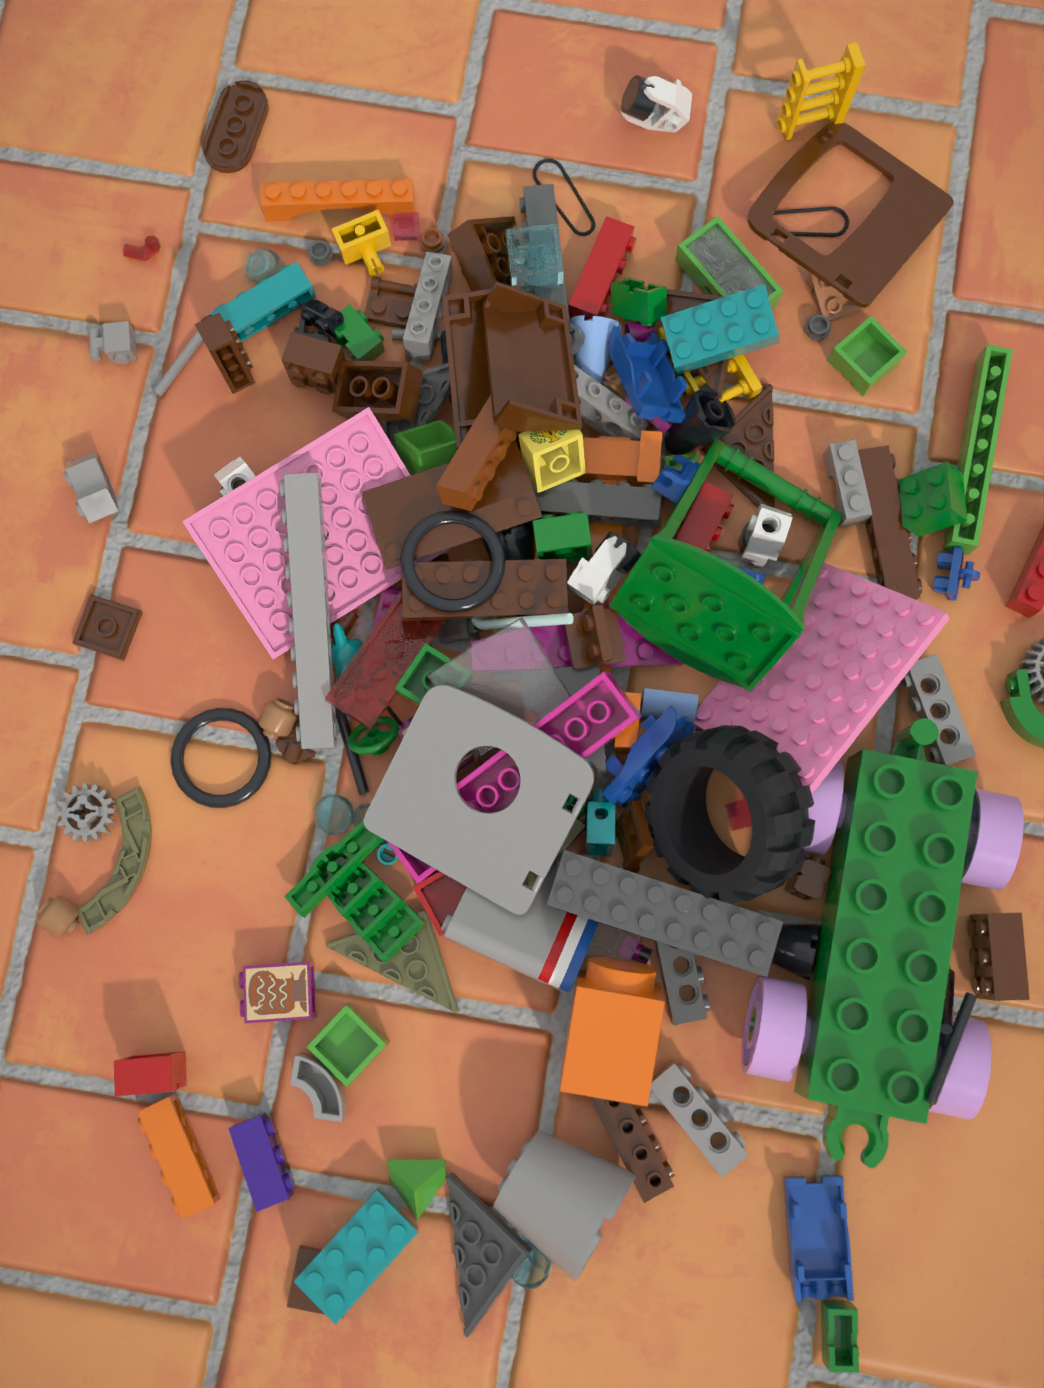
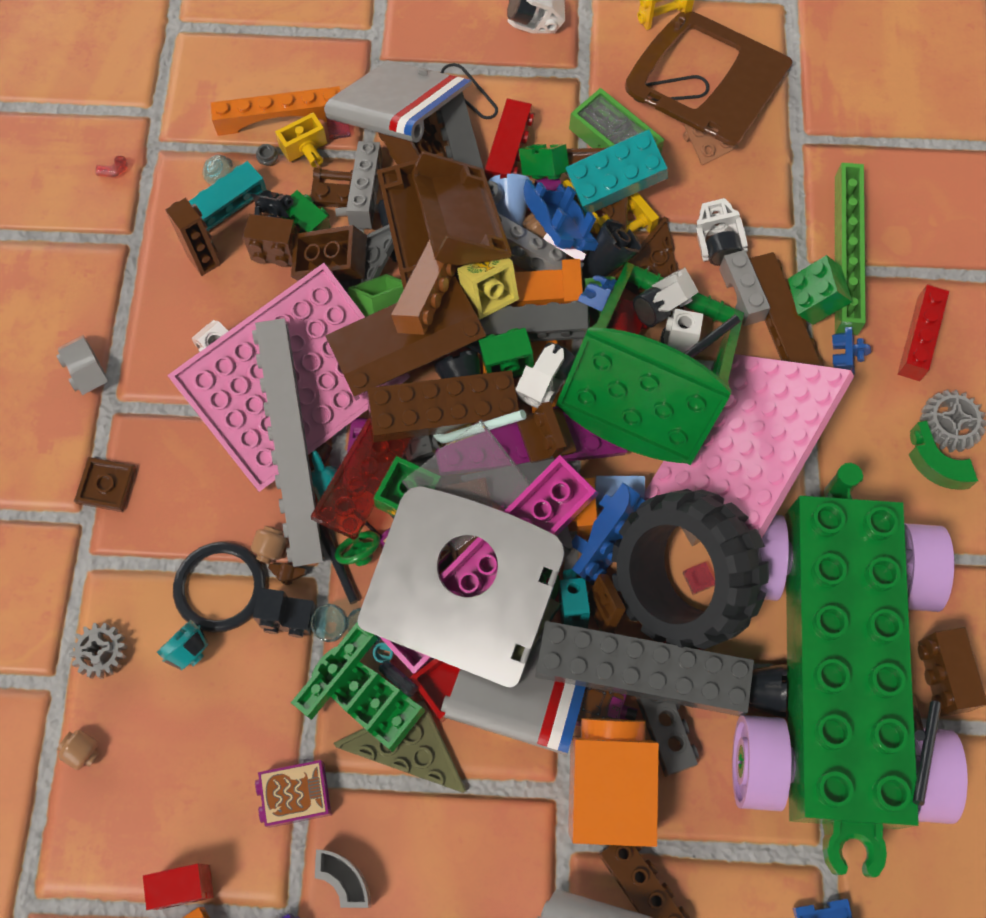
camera: 10 degrees left, 10 degrees down
(117, 343) = (96, 244): light grey brick -> none
(130, 863) = (141, 698): olive tile -> none
(177, 821) = (184, 646): none -> teal cone
(178, 364) = (153, 254): light grey bar -> none
(235, 126) = (184, 65): reddish brown tile -> none
(282, 796) = (278, 612): none -> black brick
(348, 1044) = (365, 835): bright green piece -> none
(400, 885) = (398, 678): none -> black axle
(432, 240) = (361, 134): dark orange plate -> none
(446, 604) = (395, 414): black wedge -> none
(476, 203) = (394, 99): none -> light grey door
(535, 257) = (452, 133): clear light blue brick -> none
(721, 1157) = (741, 884): light grey brick -> none
(758, 487) = (658, 301): none -> piece
(790, 550) = (713, 336): none -> black bar
(809, 879) = (768, 625): reddish brown brick -> none
(817, 327) = (697, 168): dark grey plate -> none
(826, 395) = (724, 239): none -> white piece
(867, 355) = (743, 184): bright green piece -> none
(941, 697) = (844, 434): light grey brick -> none

